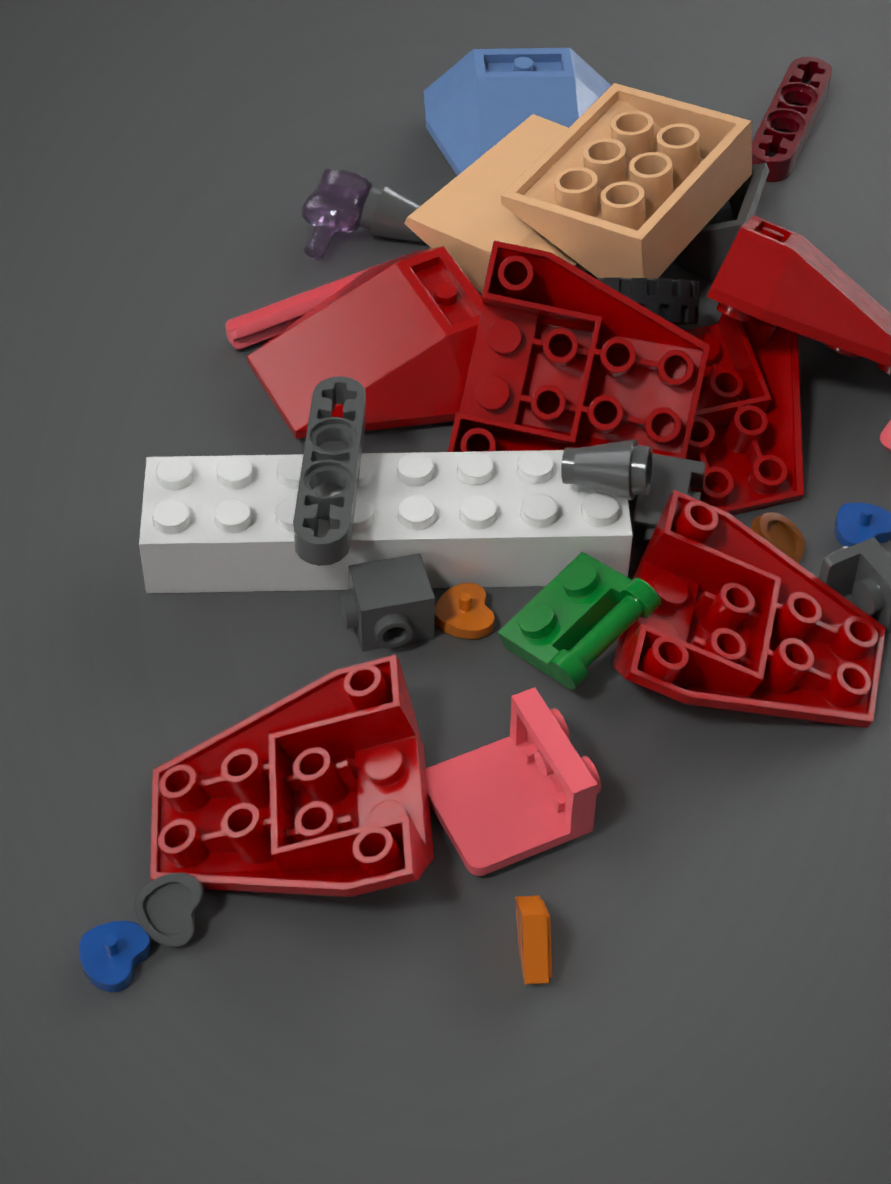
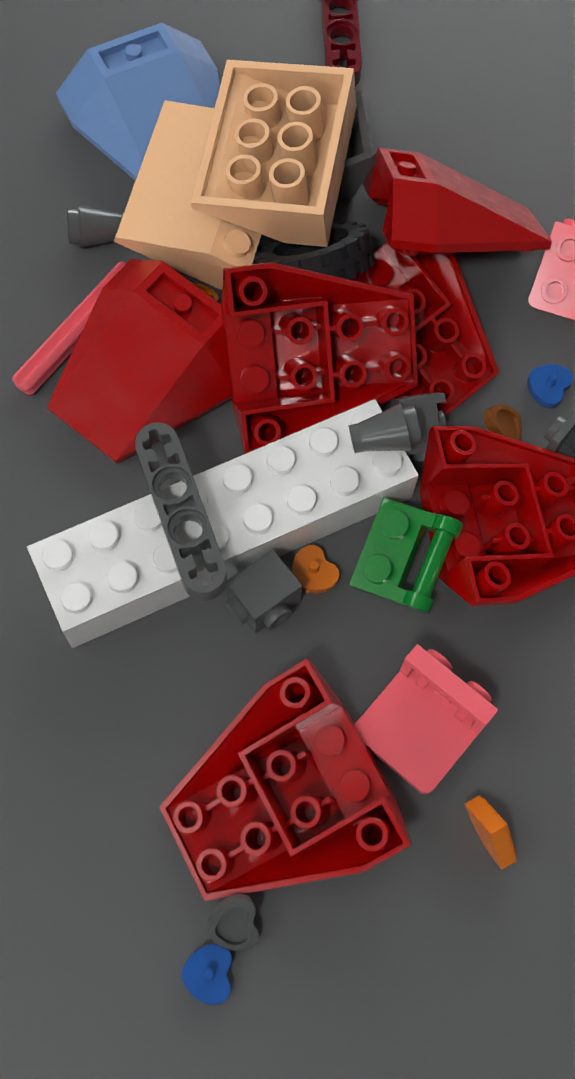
camera: 25 degrees left, 20 degrees up
(334, 208) = (43, 236): clear purple piece -> none

